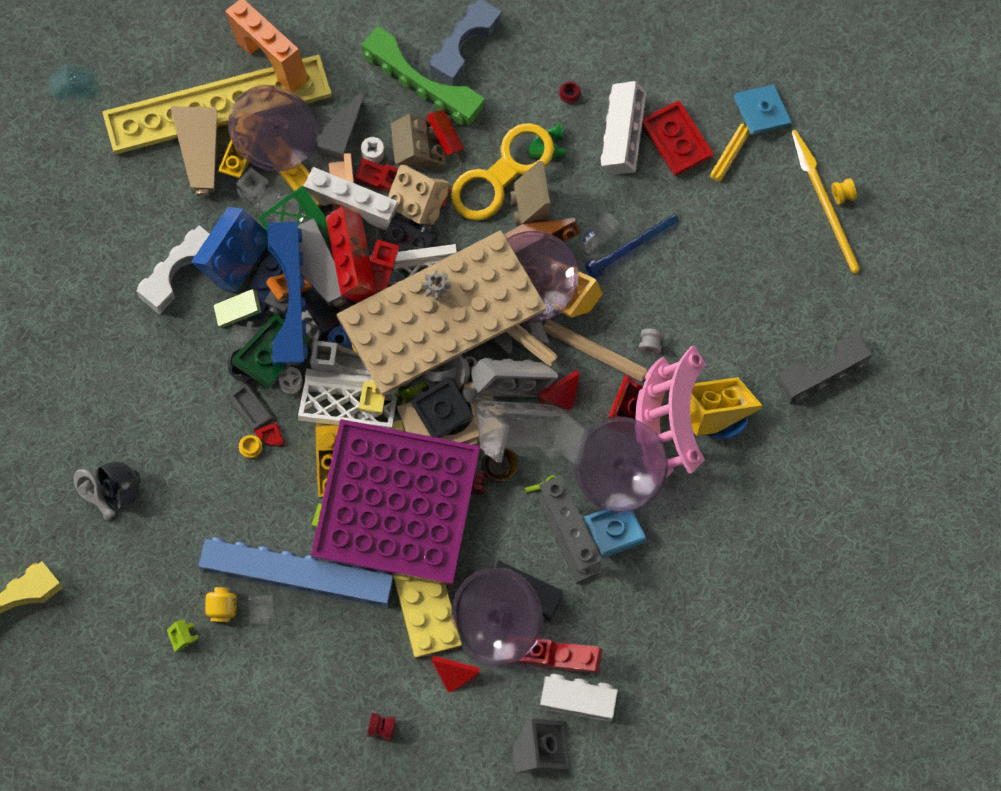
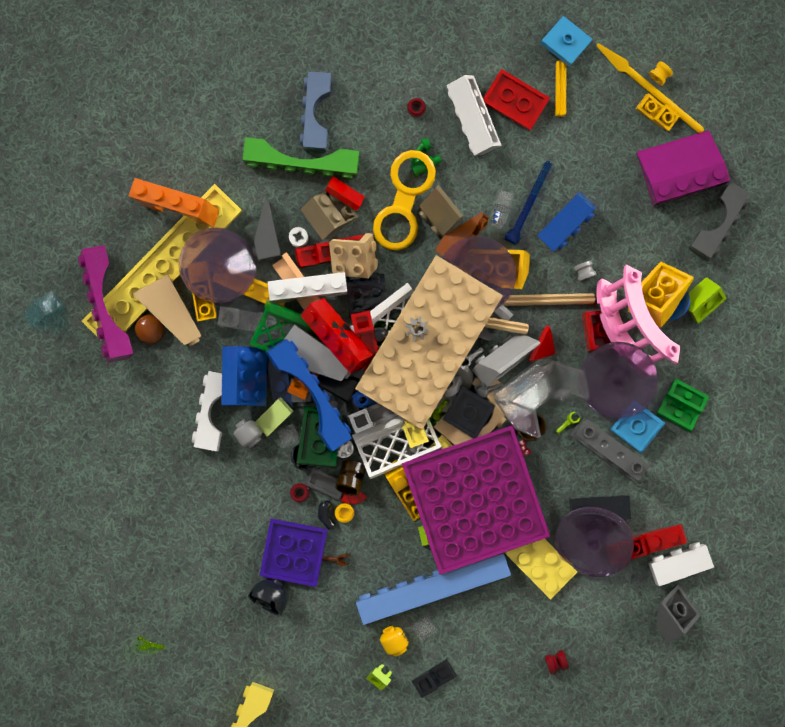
camera: 25 degrees left, 15 degrees up
(87, 482) = (251, 610): light grey piece -> none
(124, 143) = (114, 341): none -> magenta arch
(165, 157) = (149, 329): none -> dark orange hair
(172, 456) = (293, 552): none -> dark purple plate
(200, 310) = (248, 433): none -> light grey head
(215, 490) = (340, 559): none -> reddish brown hand
(216, 393) = (295, 497): none -> dark red plate
(227, 436) = (323, 514): none -> black arm
(239, 670) = (434, 678): none -> black slope
(278, 410) = (351, 476): none -> dark brown wheel
(454, 673) = (585, 595): red slope -> none
(660, 280) = (567, 222): none -> blue wedge
(677, 535) = (682, 405): none -> green slope
(762, 440) = (705, 299): none -> lime panel
(814, 297) = (682, 168): none -> magenta slope
(819, 229) = (657, 113): none -> yellow slope

